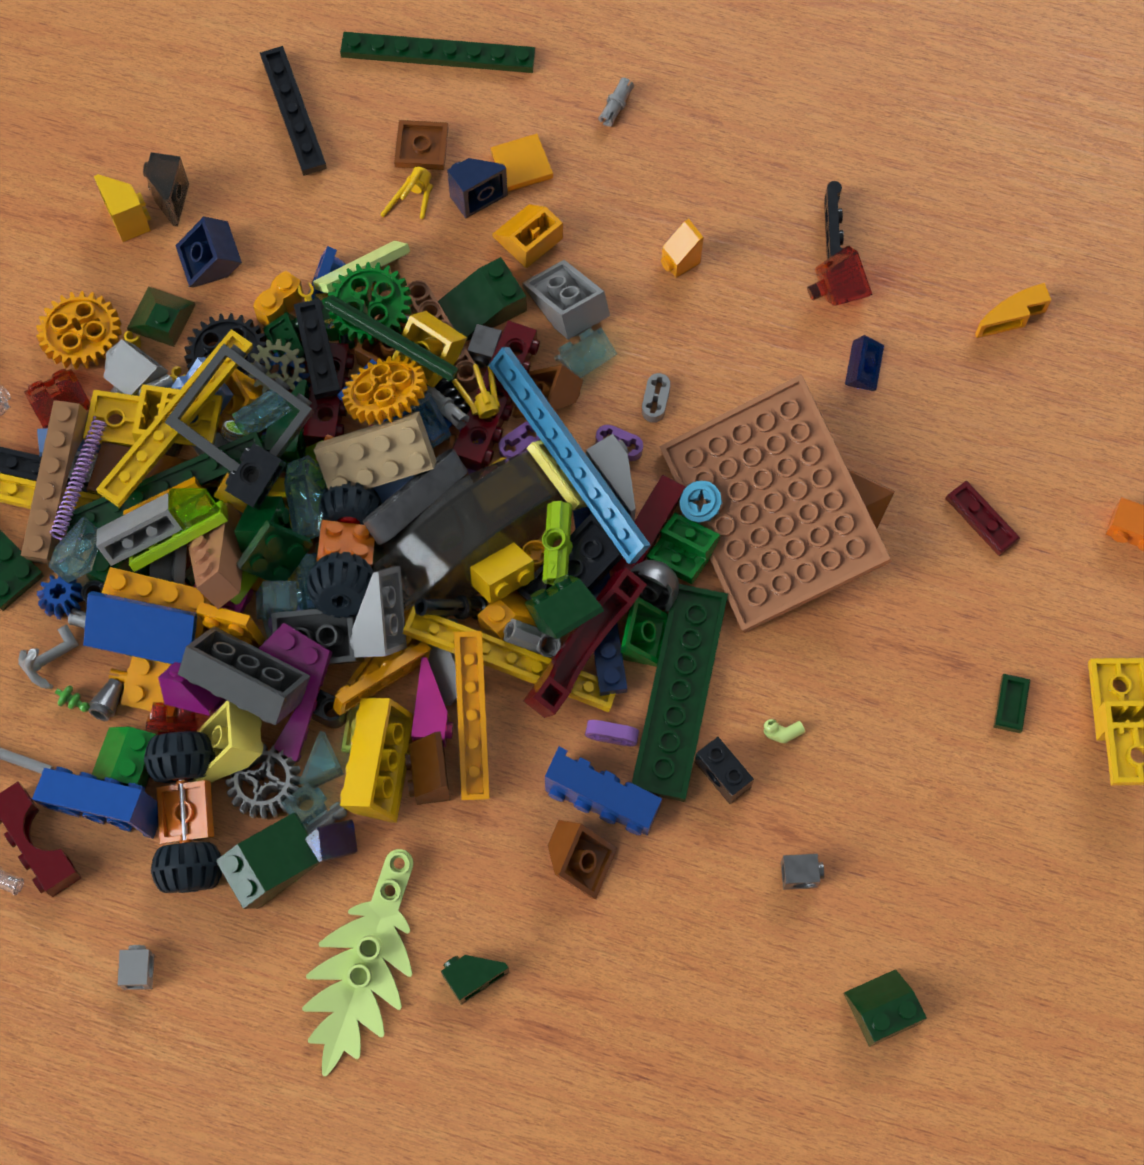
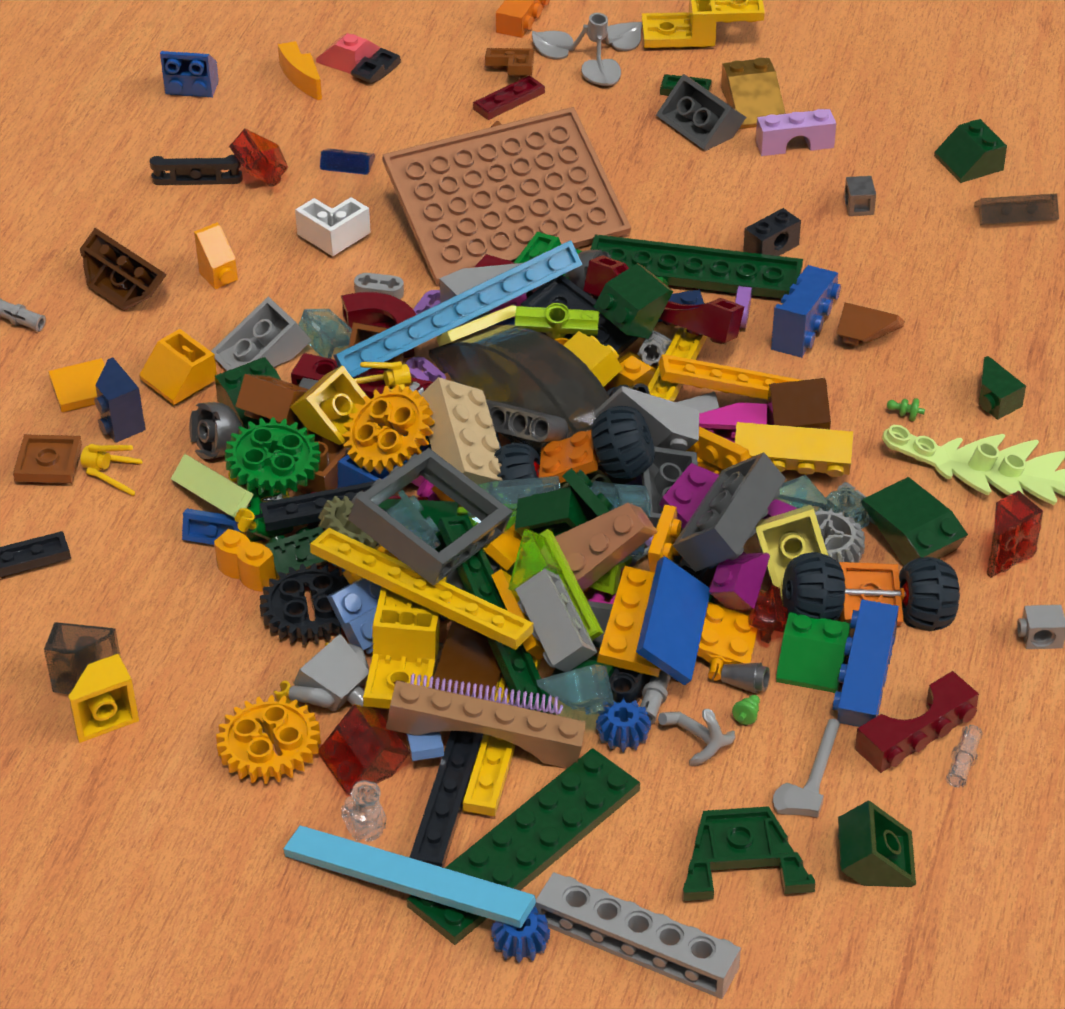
camera: 90 degrees left, 25 degrees down
(161, 316) = (253, 667): dark green slope -> none
(208, 252) = (172, 629): dark blue slope -> none
(246, 949) = (1013, 532): none -> clear red slope
(254, 492) = (507, 493): black brick -> none
(333, 840) = (881, 477): clear blue slope -> none
(391, 338) = (325, 423): dark green axle -> none
(442, 267) = (212, 428): none -> flat silver cylinder
(455, 880) = (904, 407): none -> bright green hair
(459, 303) = (269, 398): none -> dark orange slope
(605, 406) = (376, 310): none -> dark red arch
(670, 175) = (117, 271): none -> reddish brown wedge
(693, 493) = (513, 239): medium azure gear -> none
(733, 349) = (333, 227): none -> white brick
(782, 734) = (729, 208): yellowish green arm -> none
(785, 1046) = (1018, 209): none -> clear smoke panel
(919, 827) = (776, 130): none -> lavender arch
(949, 713) = (700, 114): none -> dark grey slope
(990, 773) = (752, 89): none -> pearl gold slope
(993, 206) = (189, 74): none -> blue slope
(1027, 384) = (377, 67): none -> black slope
(1046, 524) = (518, 60): none -> dark orange plate
(1056, 360) = (347, 52): none -> coral slope
(1088, 566) = (600, 72): none -> light grey plant

